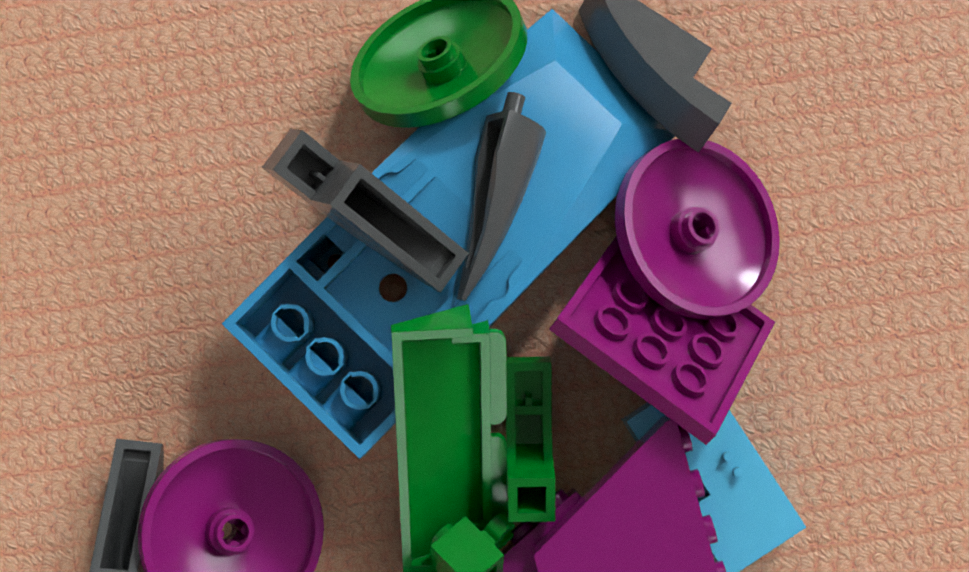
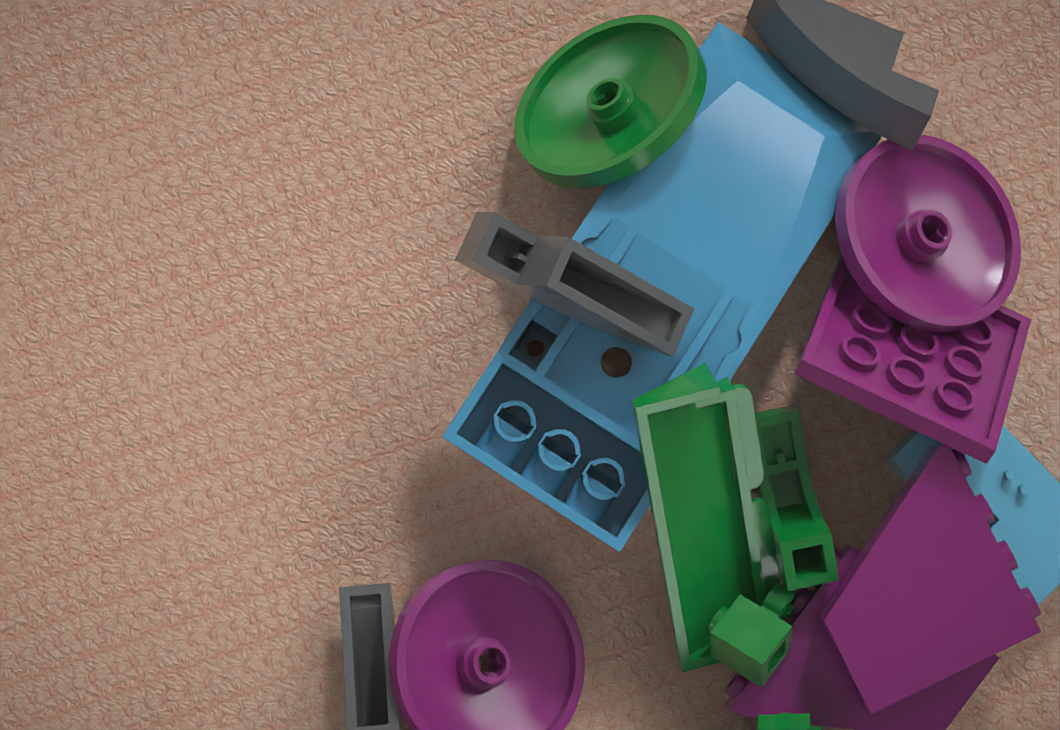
camera: 15 degrees left, 0 degrees up
(502, 174) = (709, 218): dark grey piece -> none

